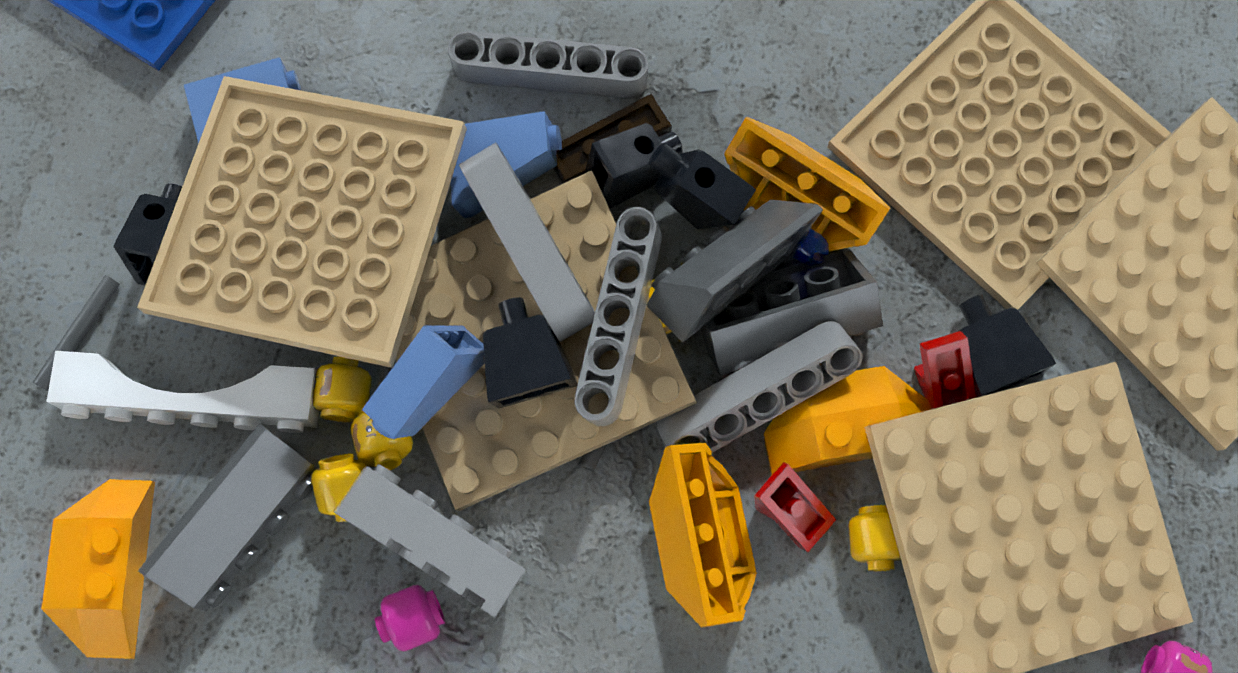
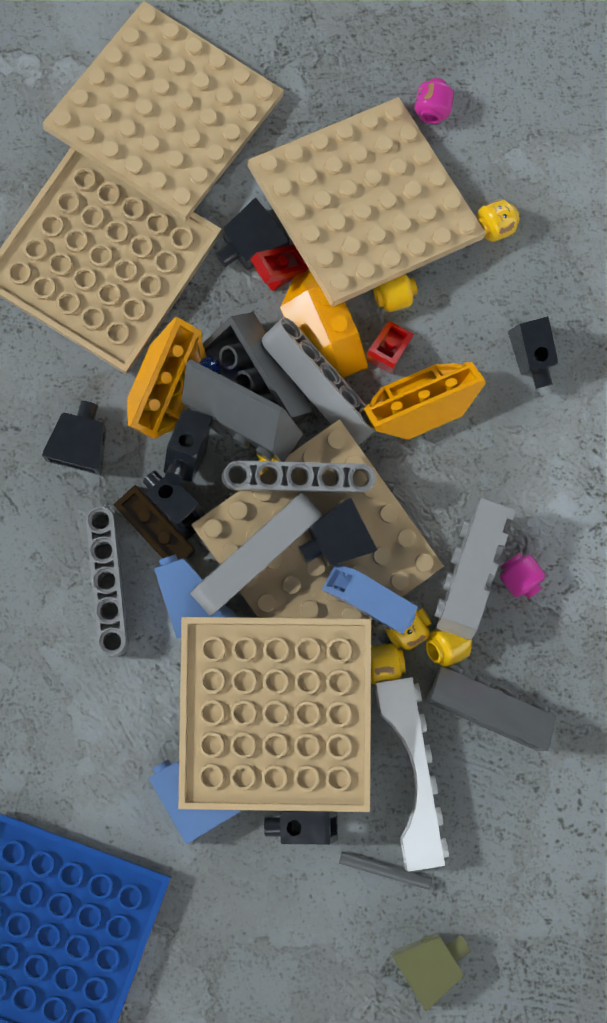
camera: 110 degrees left, 5 degrees up
(94, 568) = (541, 796): light orange wedge -> none
(746, 65) = (78, 440): none -> black torso

